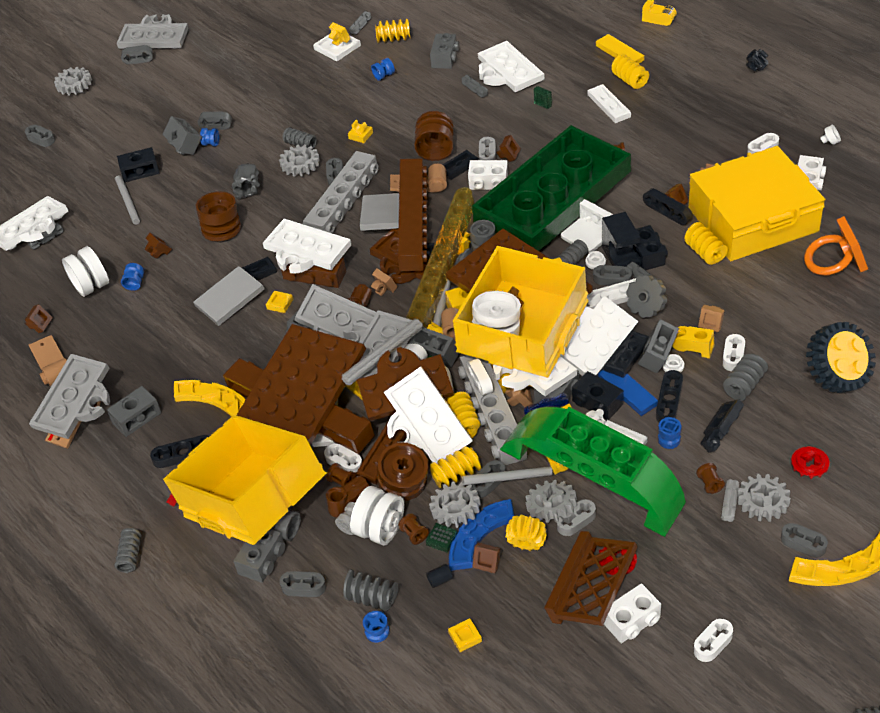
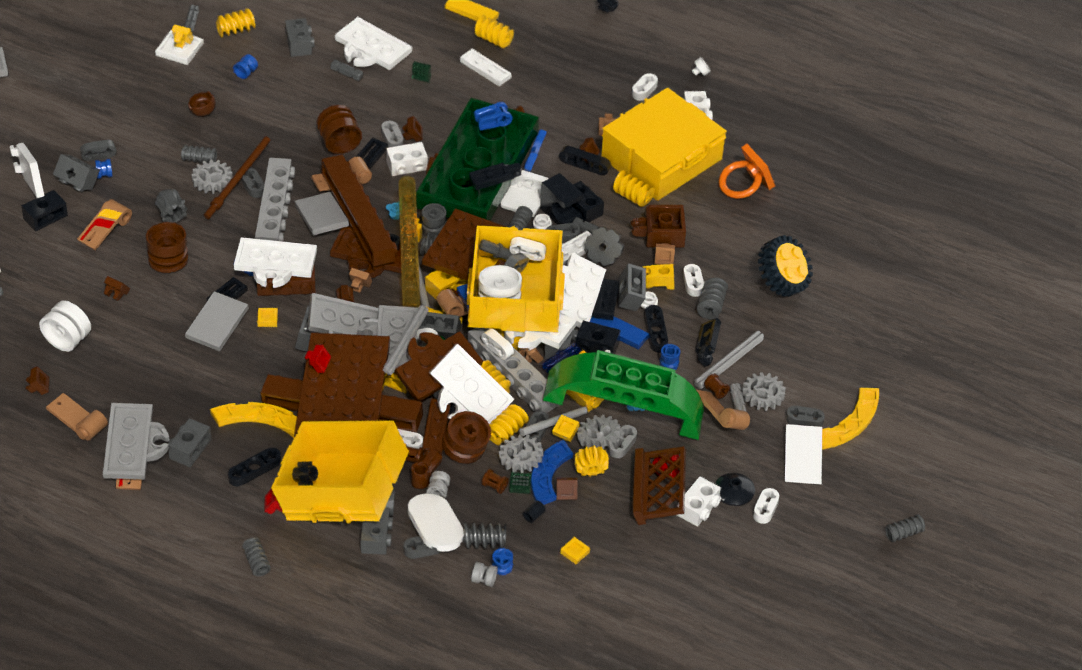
camera: 30 degrees left, 0 degrees up
(127, 199) = (52, 248): light grey bar -> none
(132, 276) = (110, 322): blue wheel -> none
(138, 125) = (28, 168): none -> white tile
(192, 176) = (103, 223): none -> medium nougat door
(210, 471) = (305, 473): none -> black gear
(280, 352) = (318, 358): none -> red tile
(293, 184) = (217, 202): none -> reddish brown bar
(325, 560) = (435, 522): none -> white tile
(326, 95) = (202, 103): none -> reddish brown hair
(345, 635) = (484, 574): none -> light grey wheel
(360, 132) = (255, 136): yellow tile -> none
(377, 515) = (467, 476): white wheel -> none
(515, 487) = (565, 428): none -> yellow tile
(516, 277) = (497, 250): none -> dark grey axle
(528, 293) = (517, 261): none -> dark grey beam
(546, 281) = (528, 248): none -> white beam
(556, 201) = (494, 175): none -> black hinge
(580, 145) = (492, 116): none -> blue piece
(609, 195) = (534, 150): none -> blue tile
(681, 616) = (735, 489): none -> black dish
(704, 517) = (727, 417): none -> medium nougat door
(719, 286) = (661, 225): none -> reddish brown hinge
(742, 448) = (730, 358): none -> light grey axle
(784, 586) = (803, 454): none -> white sticker
(807, 454) = (783, 350): red gear -> none

